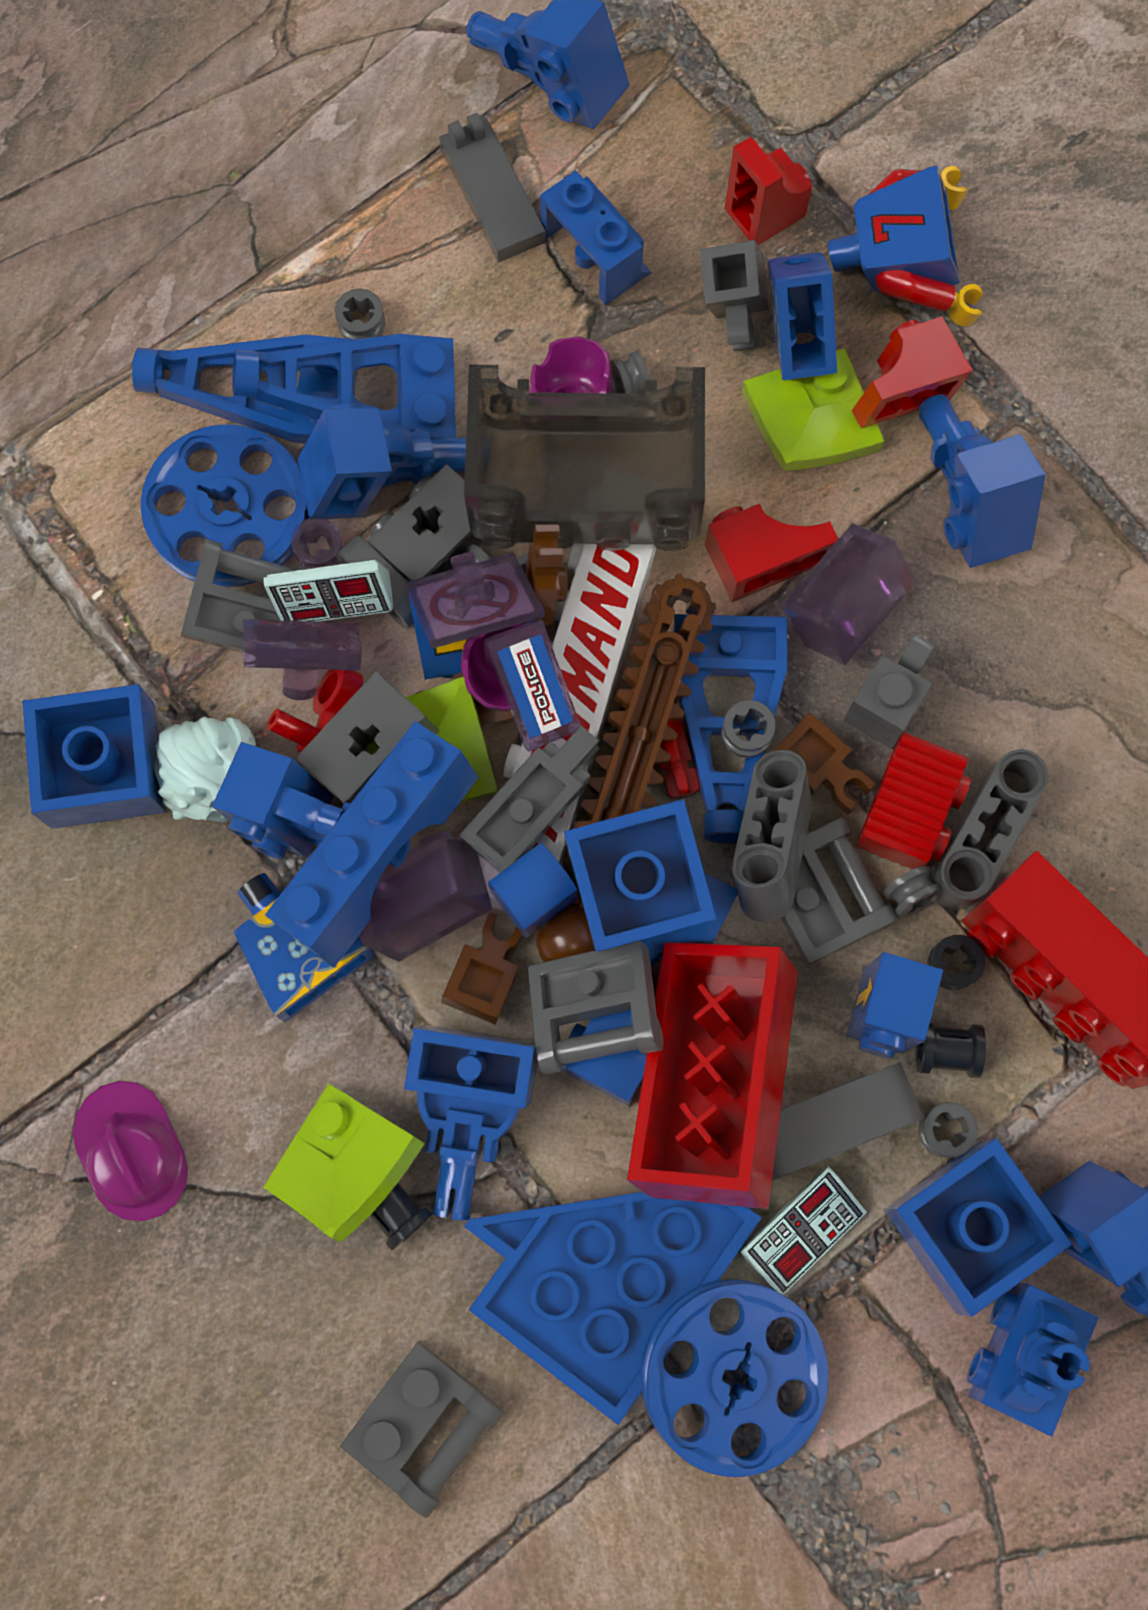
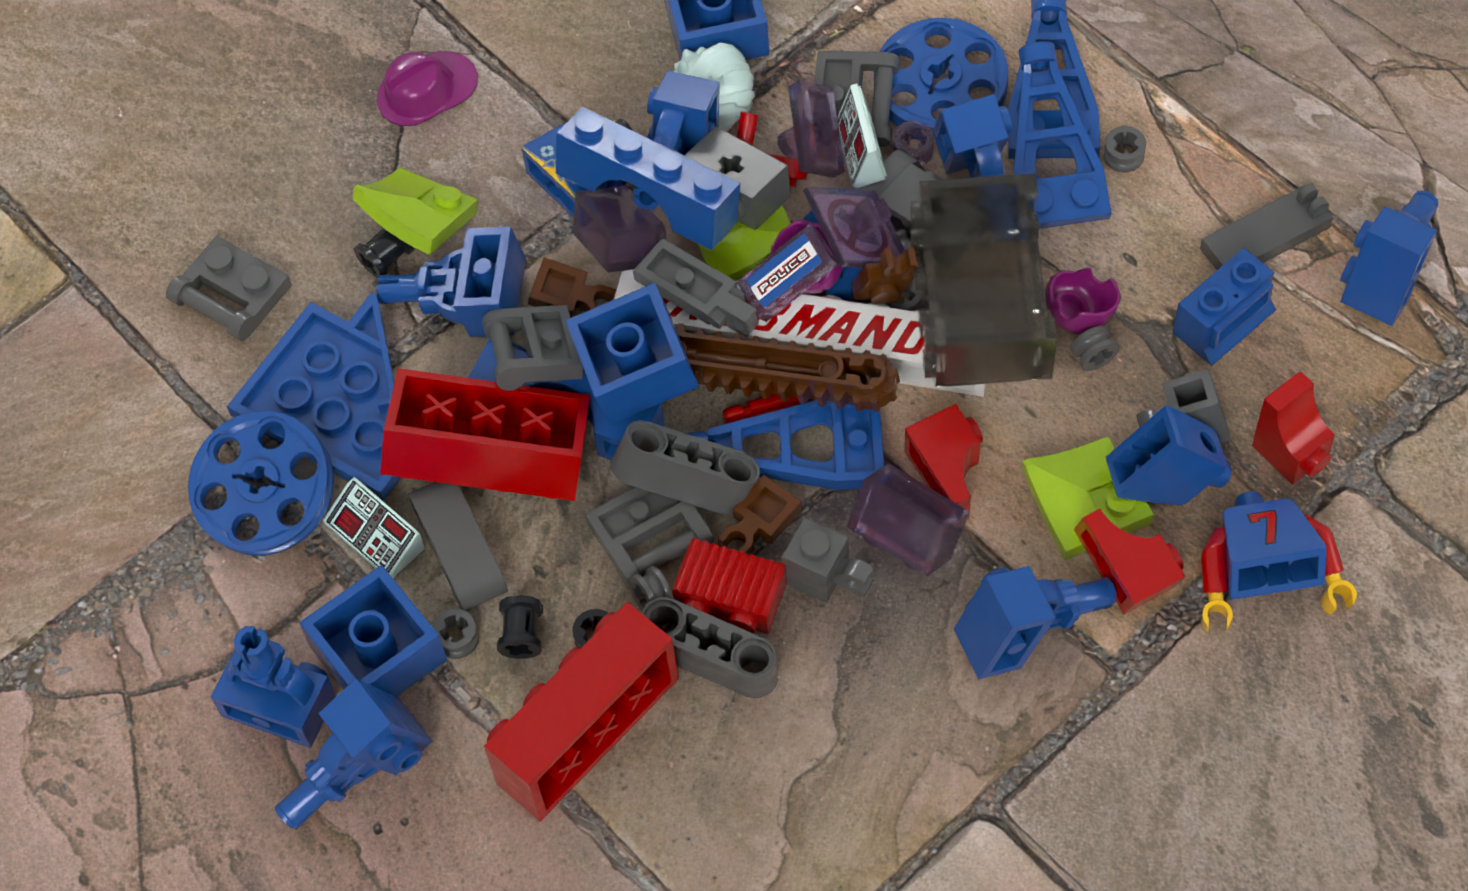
camera: 90 degrees right, 15 degrees down
(533, 889) = (614, 279): blue piece -> none
(738, 714) = (772, 433): dark grey bush -> none
(893, 1005) = (548, 563): blue brick -> none

